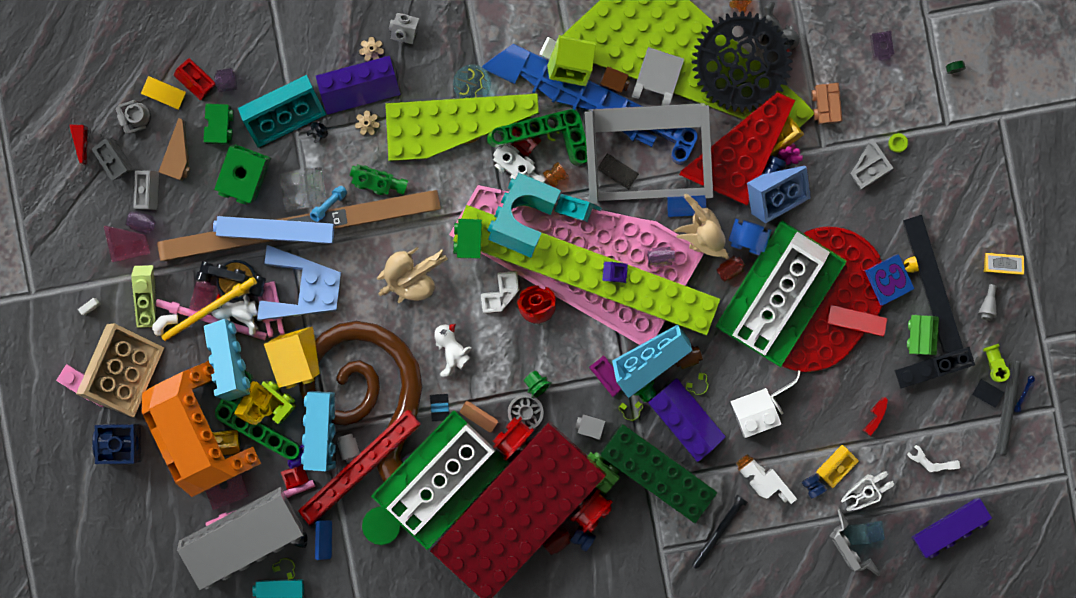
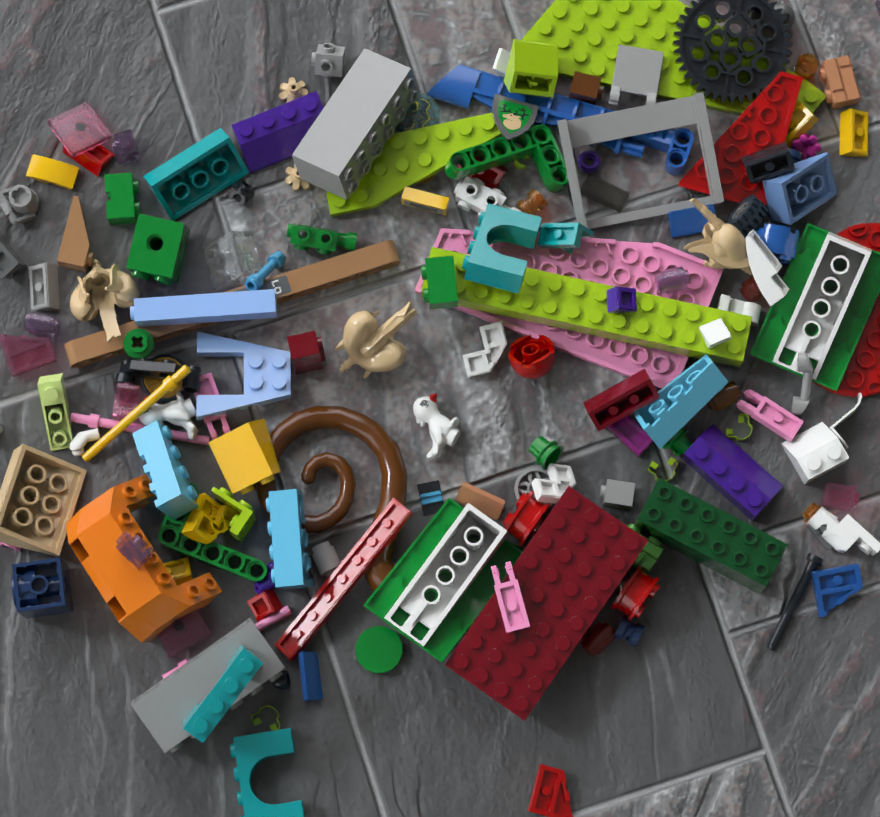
camera: 10 degrees left, 10 degrees down
(189, 60) = (79, 129): none -> clear pink tile
(192, 202) = (101, 291): none -> tan hair
(192, 429) = (134, 549): none -> brick
(217, 244) = (138, 352): none -> green piece
(235, 569) = (210, 711): none -> teal arch
(352, 278) = (306, 352): none -> dark red brick
(418, 90) = (355, 124): none -> brick
(468, 159) = (425, 200): none -> yellow slope
(488, 509) = (510, 600): none -> bright pink hinge
(539, 418) = (552, 490): none -> white tile
(549, 99) = (513, 116): none -> shield
(604, 351) = (621, 400): none -> dark red brick
(613, 139) = (591, 155): none -> dark purple plate
(686, 310) = (715, 333): none -> white slope
(712, 287) = (741, 307): none -> white leg
(725, 378) = (770, 415): none -> bright pink hinge
(730, 211) = (747, 214): none -> black wheel
(737, 260) = (765, 268): none -> white slope
(753, 524) = (834, 586): none -> blue wing
(754, 170) = (768, 163): none -> black brick
(757, 344) = (800, 403): none -> light grey bar
(769, 452) = (840, 496): none -> clear pink bracket
(802, 84) = (808, 63): none -> clear orange wheel
(832, 148) = (854, 133): none -> yellow slope

